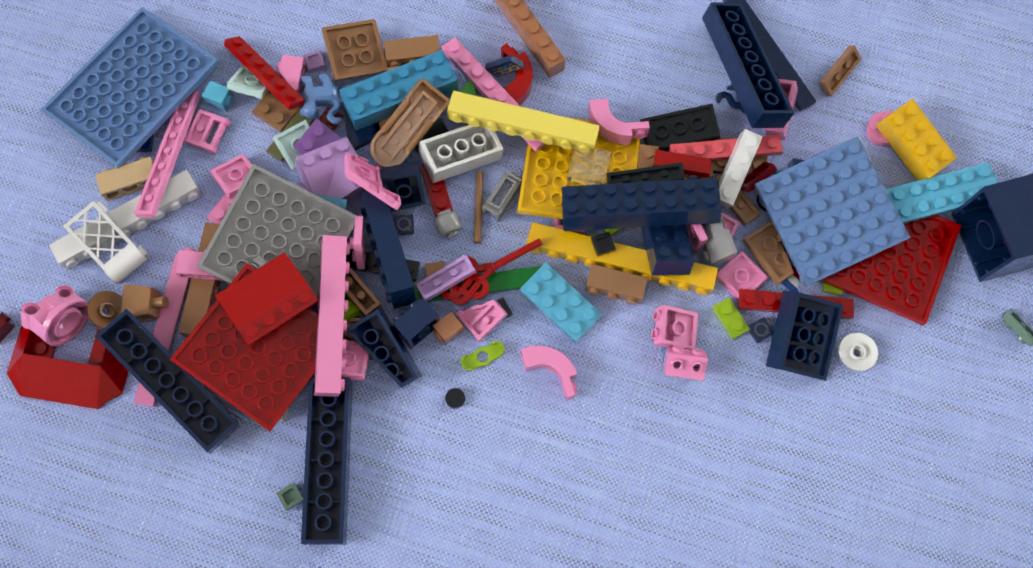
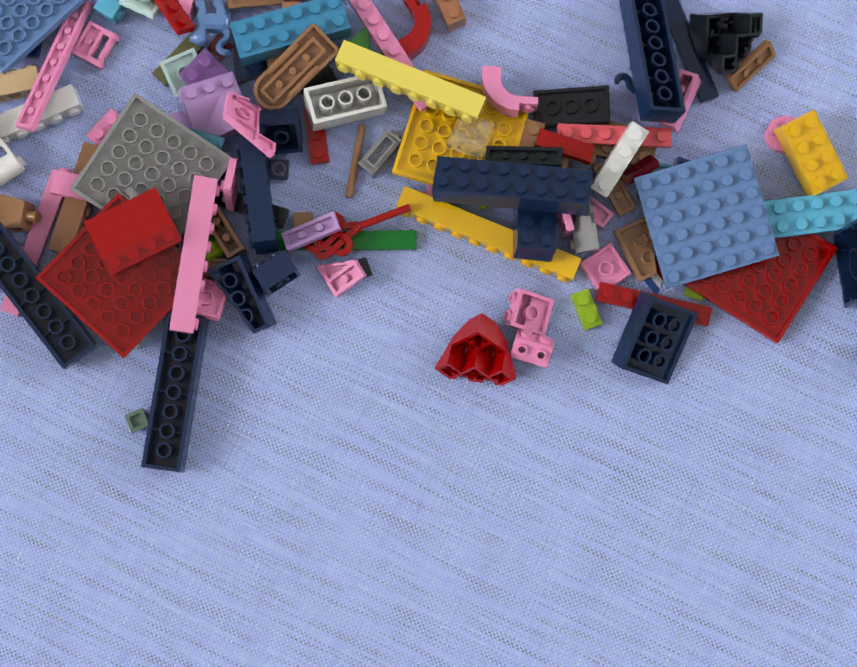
camera: 15 degrees right, 10 degrees up
(231, 174) = (115, 95): bright pink plate -> none
(274, 112) = (163, 34): medium nougat plate -> none
(447, 328) = (306, 281): nougat brick -> none
(448, 223) = (322, 174): light grey head -> none
(455, 398) = (305, 349): black tile -> none
(494, 351) = (325, 316): lime piece -> none
(504, 66) = (402, 16): tile -> none
(549, 358) = (395, 322): bright pink arch -> none
(560, 302) = (420, 270): medium azure plate -> none
(603, 244) = (471, 218): black tile -> none
(616, 284) = (478, 260): medium nougat brick -> none
(632, 376) = (478, 353): none -> red brick
(760, 330) = (613, 325): dark blue tile -> none
(811, 47) = (724, 37): none -> black brick
(864, 346) = (714, 360): white dish -> none

